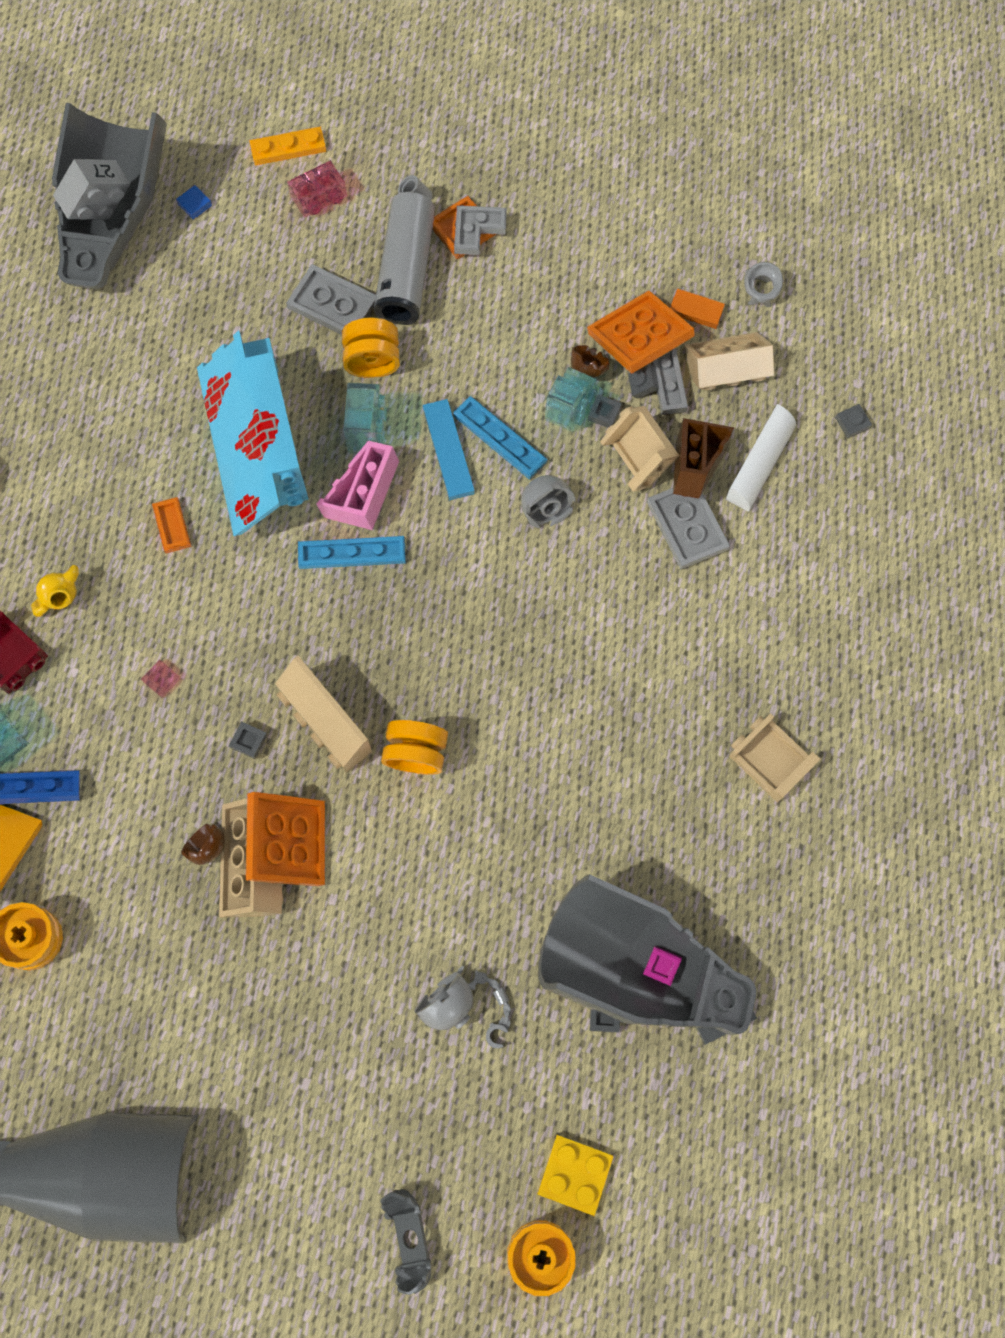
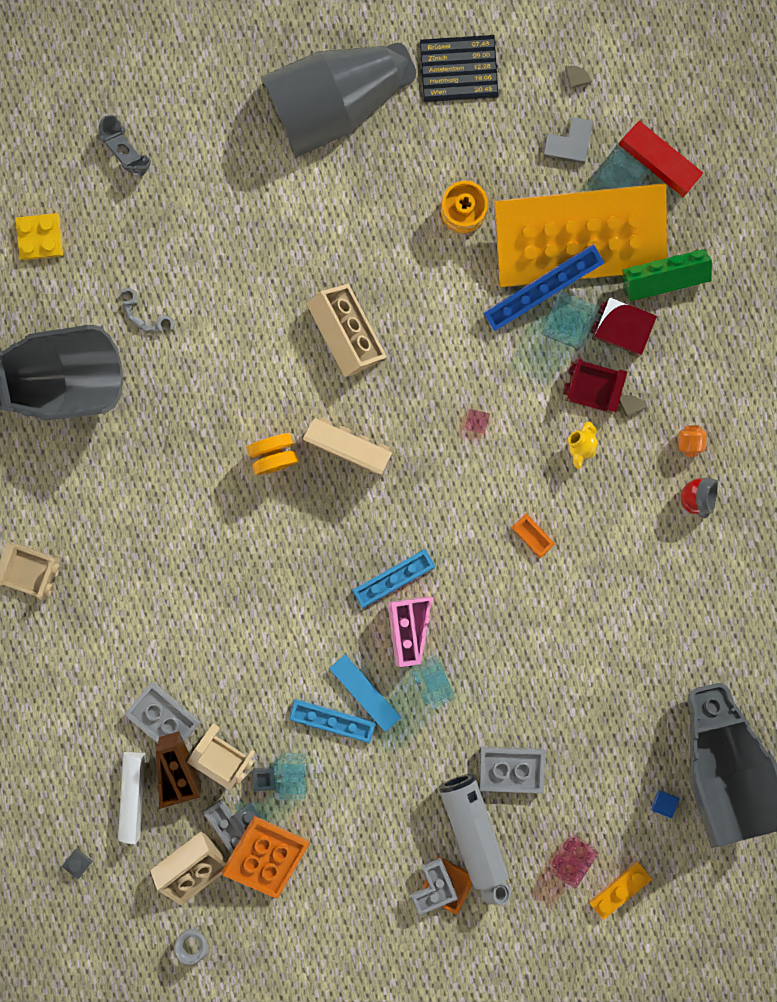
camera: 160 degrees right, 15 degrees up
(91, 189) = (738, 765): light grey brick -> none
(204, 845) = (382, 322): reddish brown hair -> none
(248, 740) = (392, 407): dark grey plate -> none
(250, 432) = (509, 627): medium azure panel -> none
(285, 839) = (326, 349): orange plate -> none
(370, 348) = (459, 741): light orange wheel -> none
(447, 1004) = (168, 298): light grey cylinder -> none
(546, 1276) = (35, 176): light orange wheel -> none
(551, 497) = (272, 685): light grey cylinder -> none
(589, 364) = (293, 812): reddish brown hair -> none
(662, 965) = (38, 389): dark pink tile -> none
(697, 308) = (235, 902): orange tile -> none

